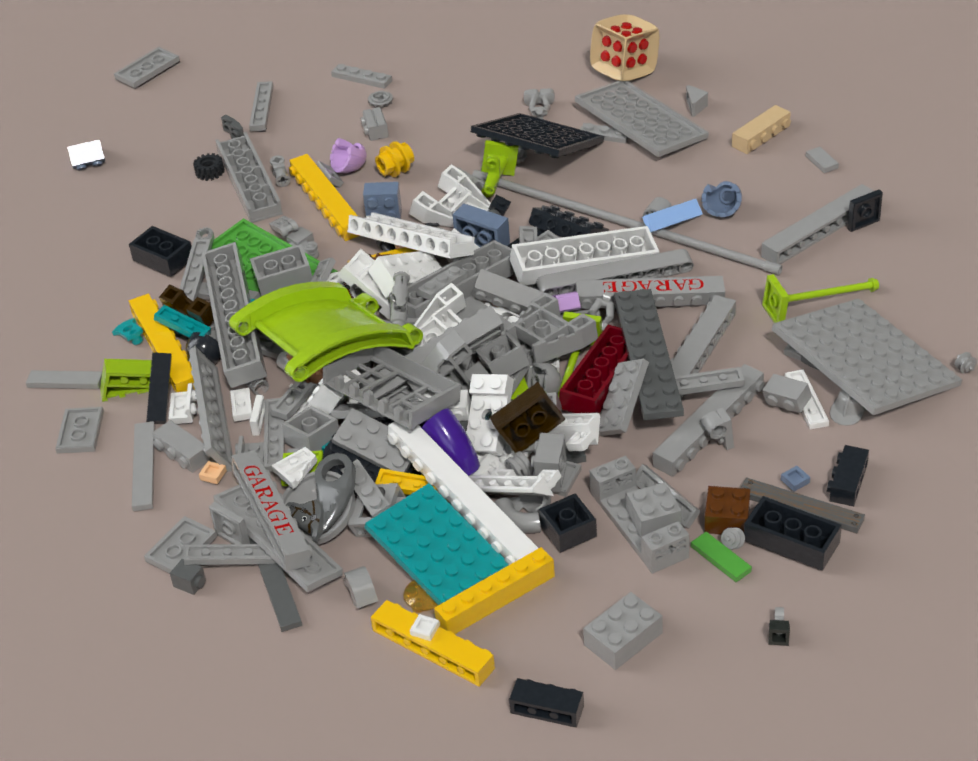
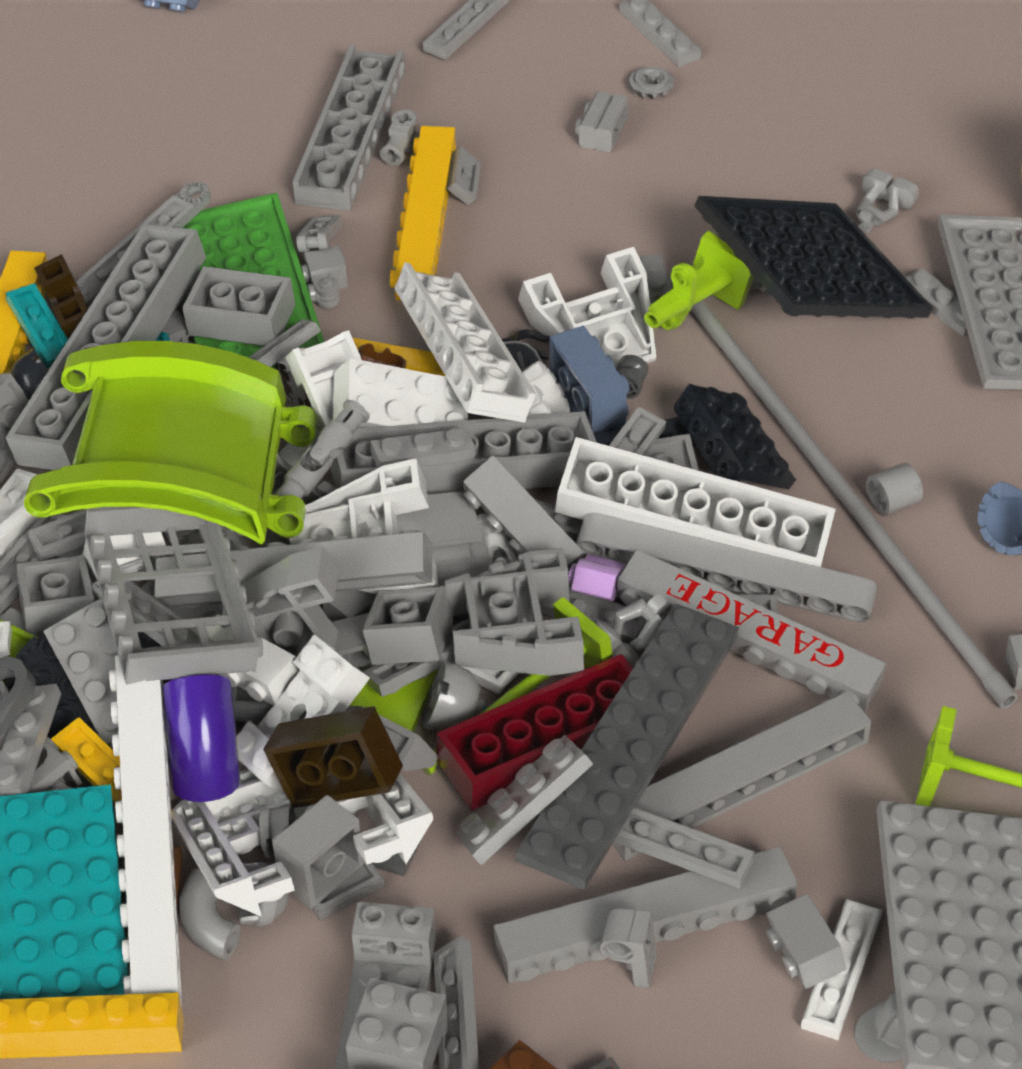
camera: 30 degrees right, 5 degrees up
(160, 250) = (123, 189): black brick -> none
(208, 166) = (311, 83): black tyre -> none
(232, 126) = (398, 34): dark grey slope -> none
(346, 156) = (510, 160): lavender hair -> none
(382, 199) = (488, 261): sand blue brick -> none
(394, 159) = (570, 196): yellow piece -> none
(500, 204) = (664, 352): black plate -> none
(568, 522) = (263, 972): black brick -> none
(672, 215) = (908, 508): light blue tile -> none

